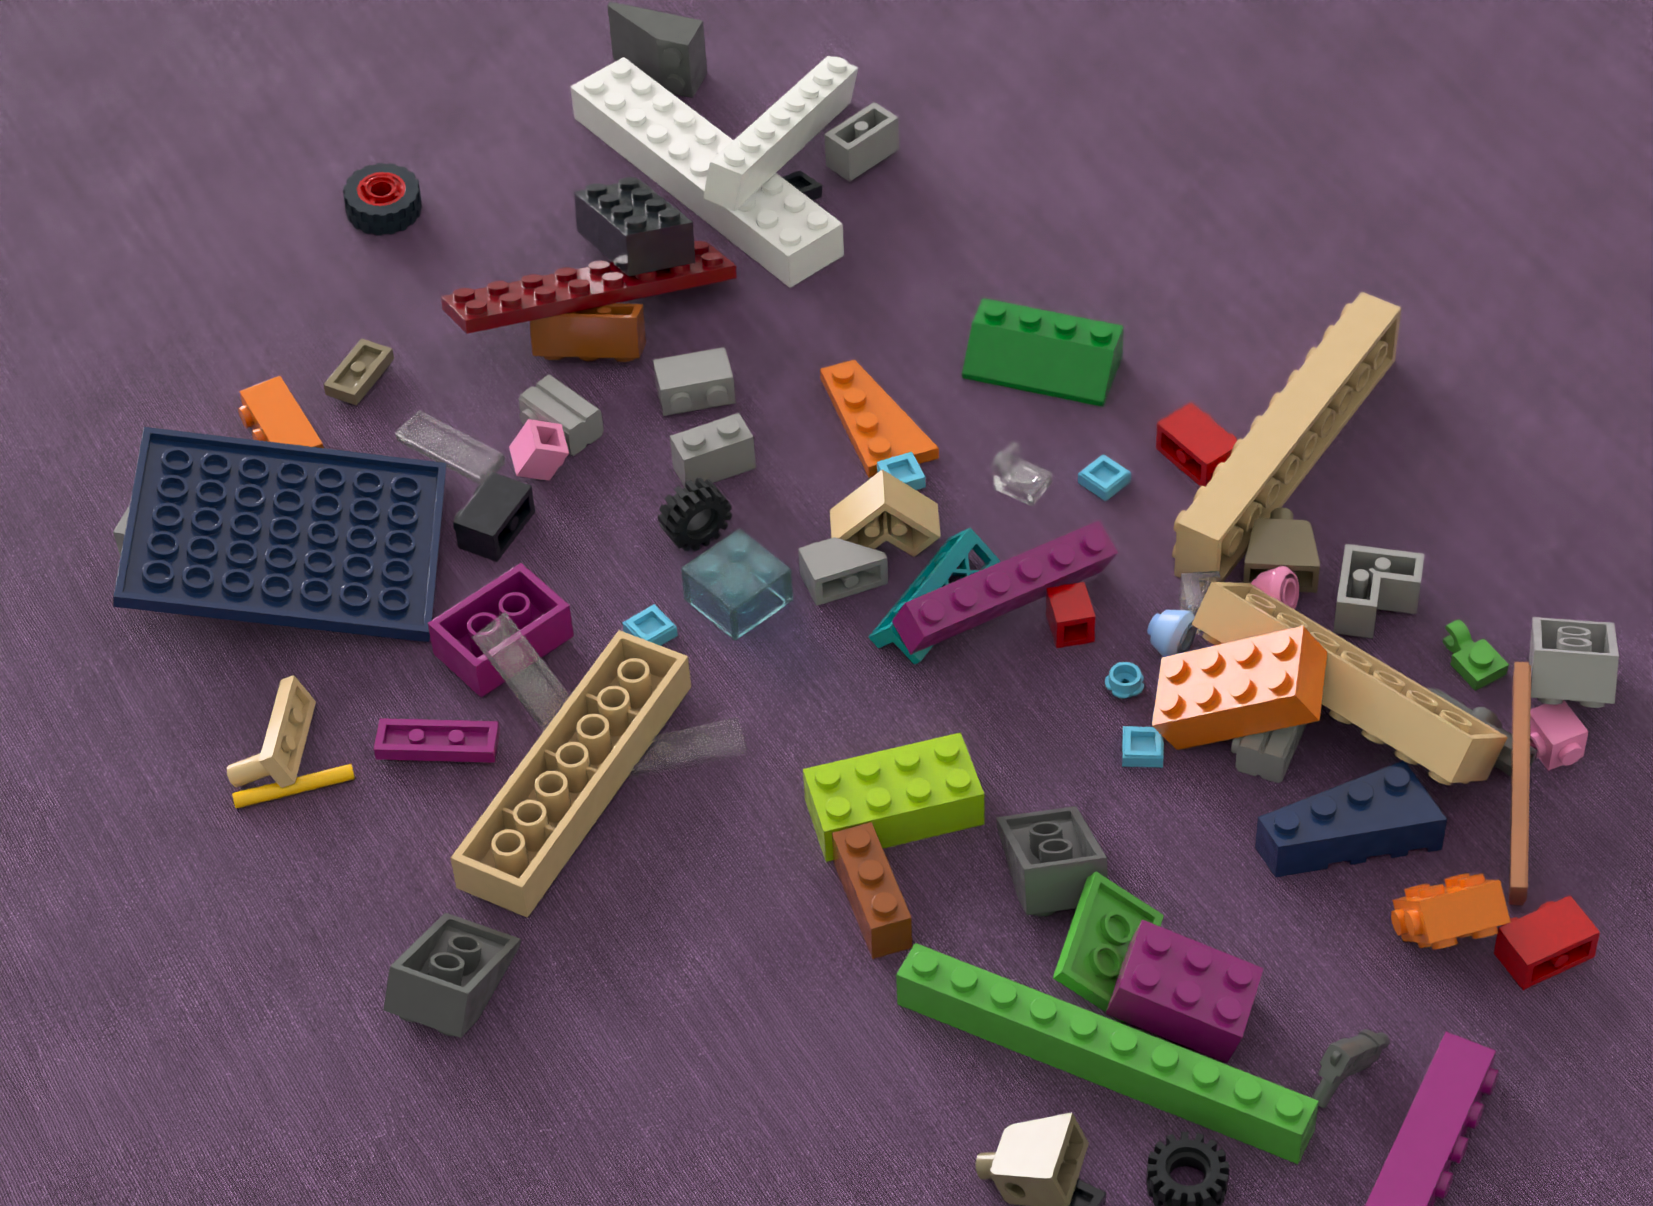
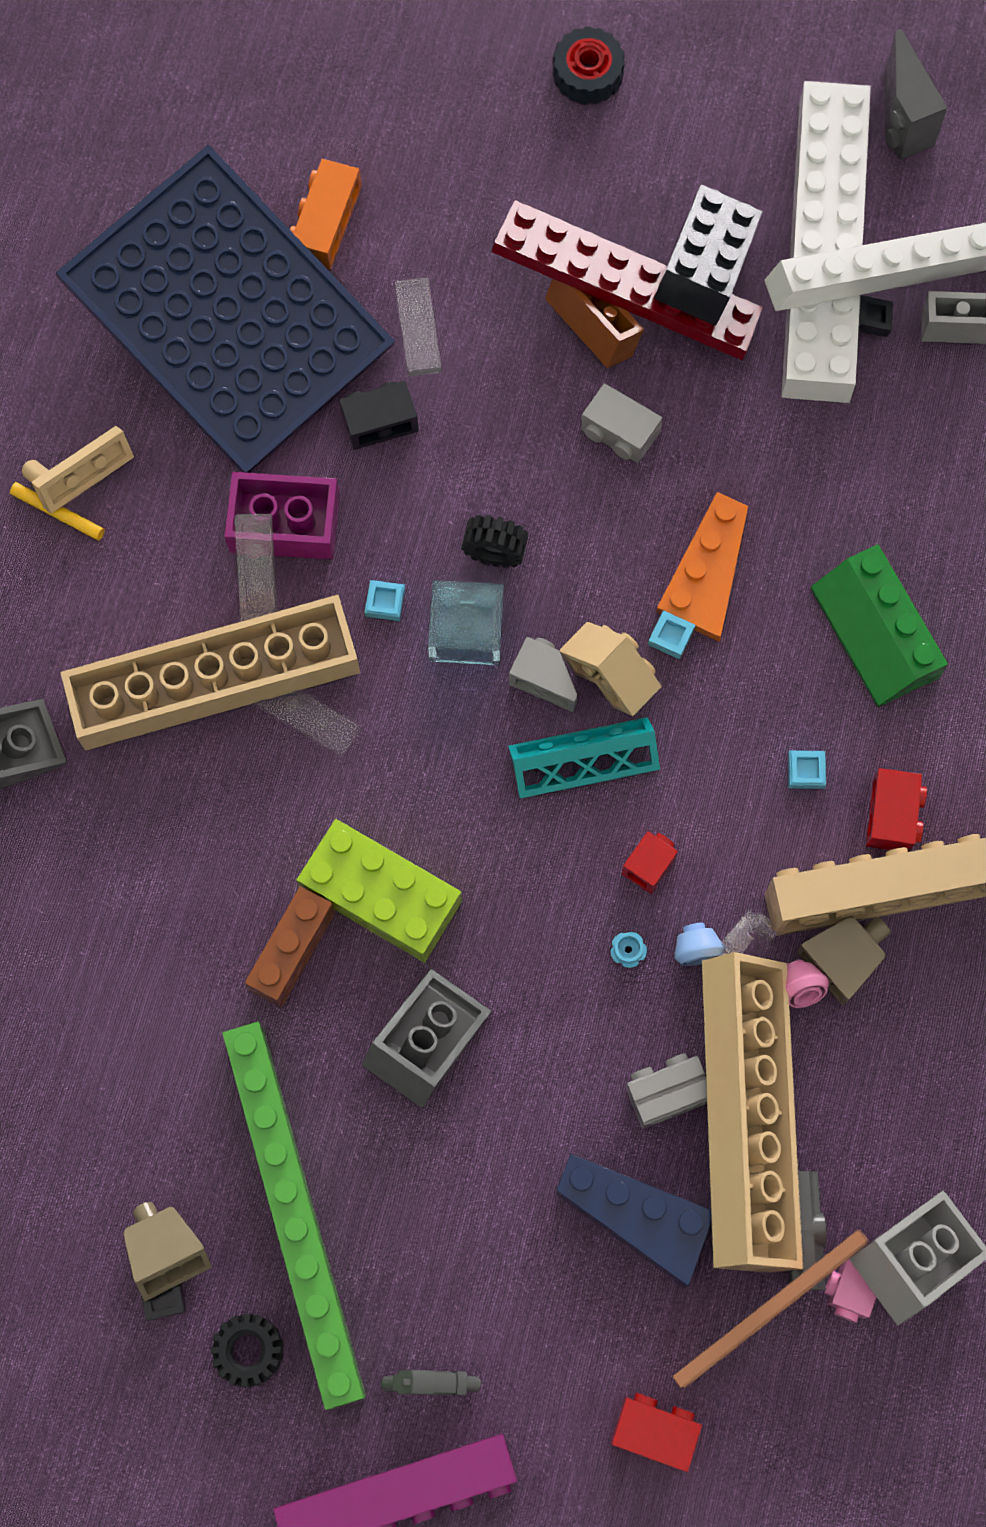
camera: 45 degrees right, 25 degrees up
(359, 371) = (423, 207): dark tan plate -> none
(437, 740) = (167, 562): magenta plate -> none
(539, 450) = (456, 389): bright pink brick -> none
(558, 404) = (506, 369): light grey brick -> none
(713, 450) = (567, 496): light grey brick -> none
(1003, 587) = (622, 804): magenta brick -> none
(1018, 477) = (749, 713): clear bracket -> none
(1099, 939) = (378, 1143): bright green plate -> none
(1142, 747) = (584, 1010): medium azure tile -> none
(1185, 991) = (381, 1229): magenta brick -> none
(1240, 688) = (664, 1051): orange brick -> none
(1374, 581) = (869, 1041): light grey brick -> none
(1442, 913) = (607, 1353): orange brick -> none
(1476, 661) = (878, 1174): bright green plate -> none

